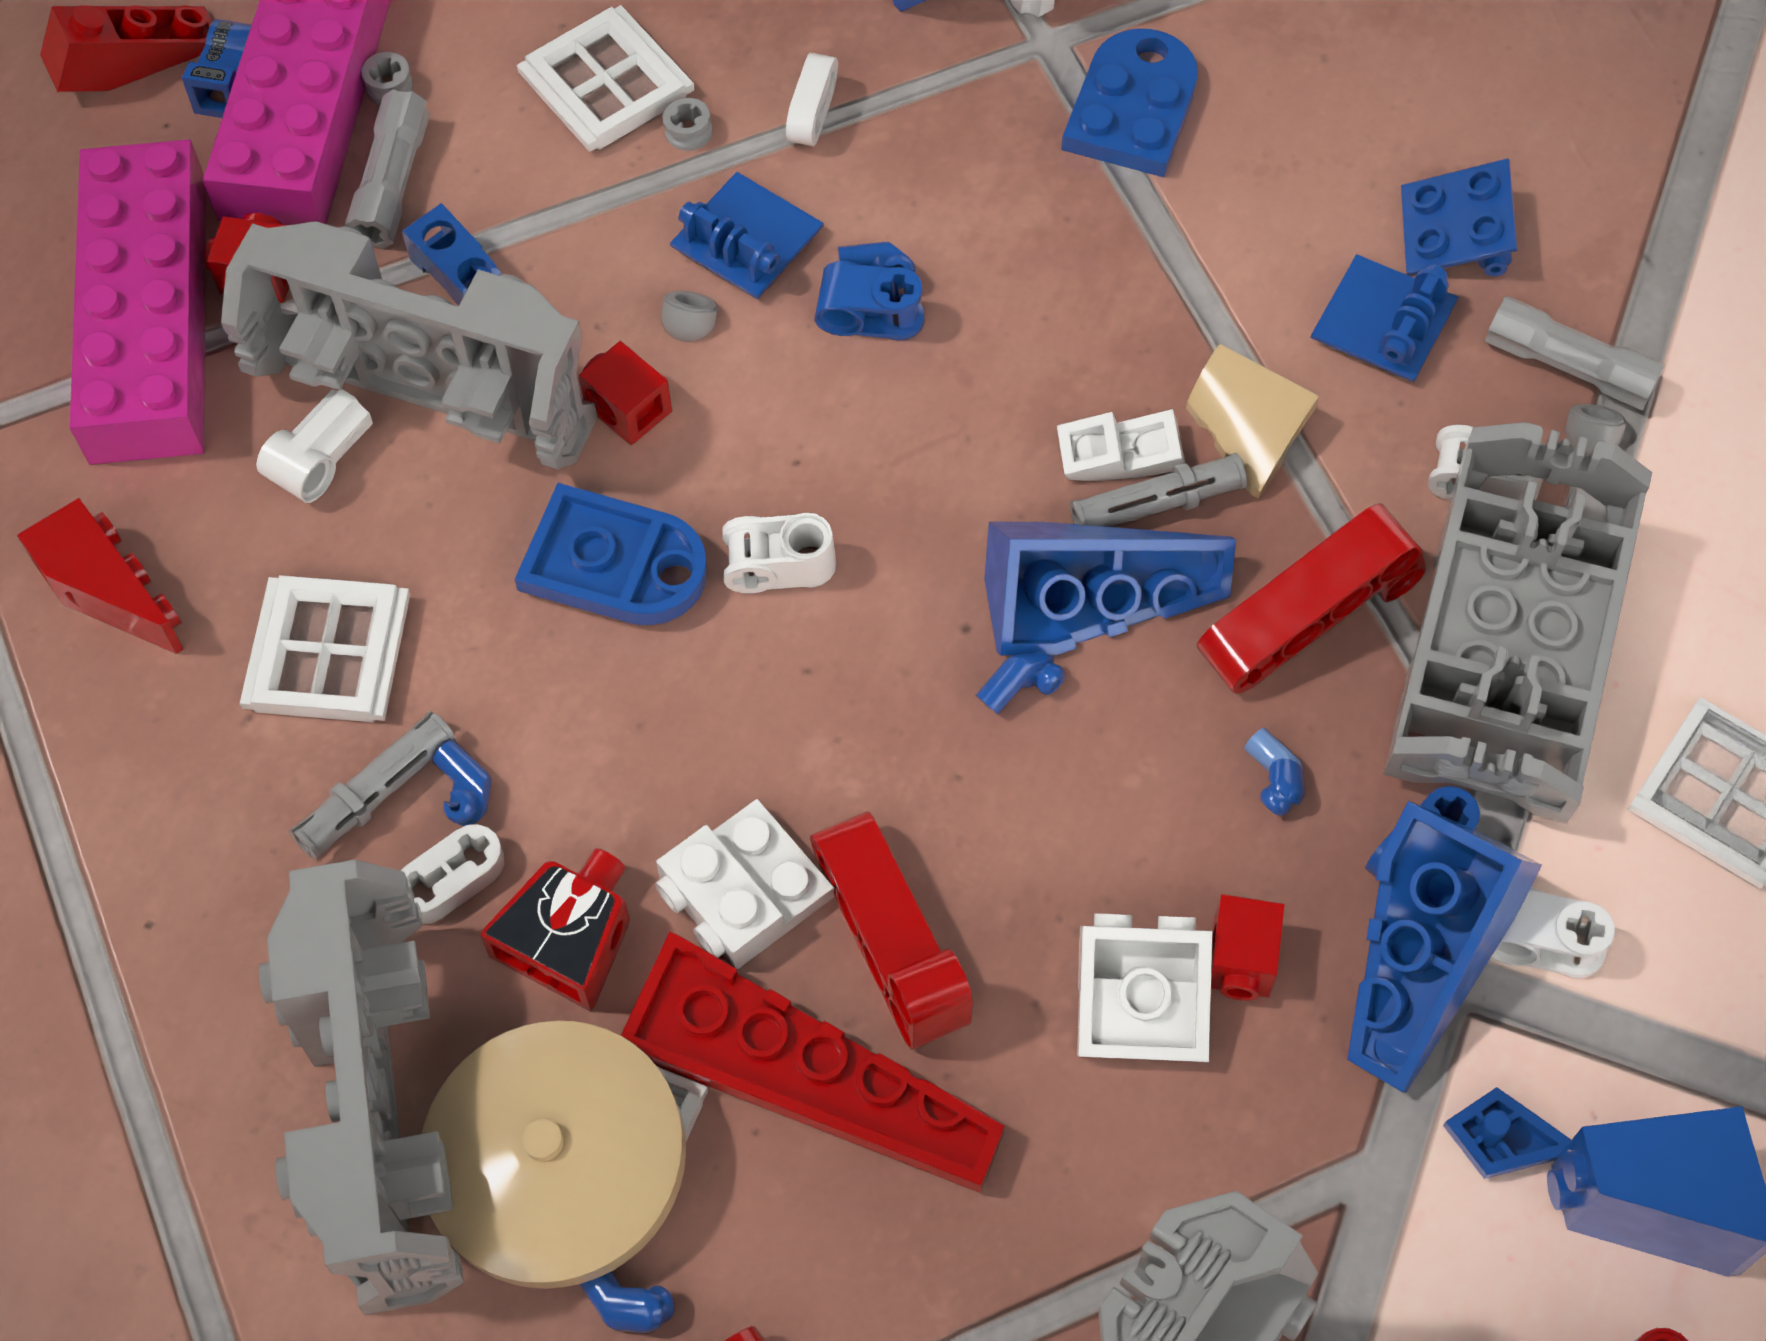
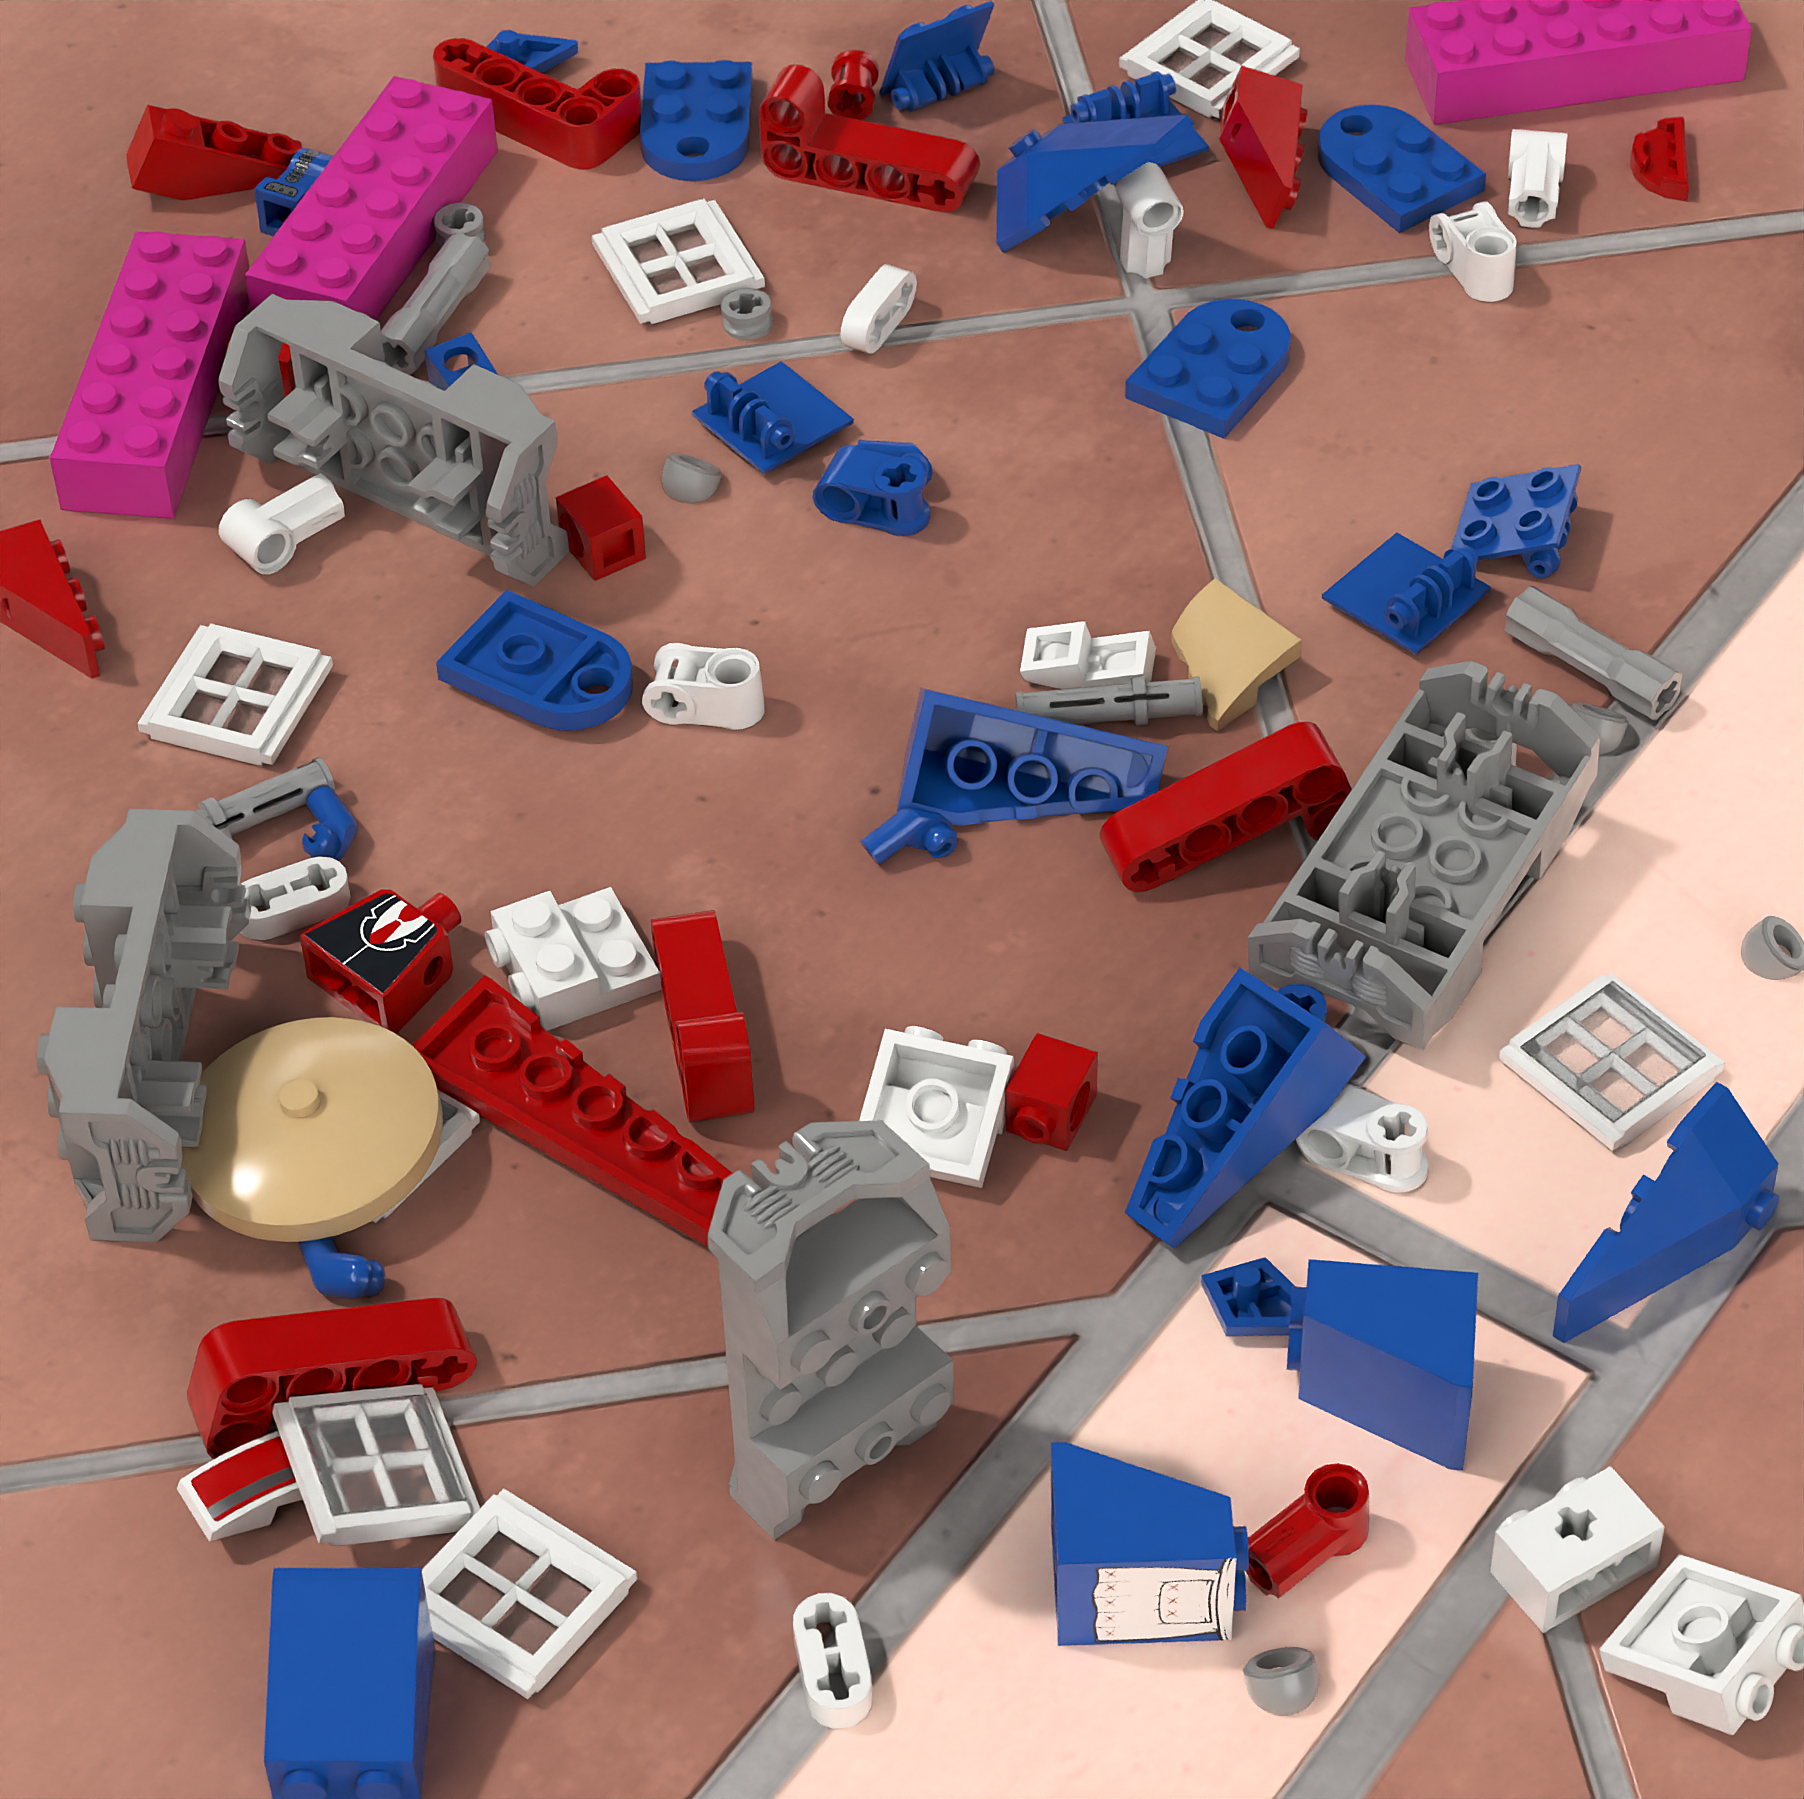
camera: 15 degrees right, 15 degrees down
(1284, 771) = (1149, 958): blue arm -> none

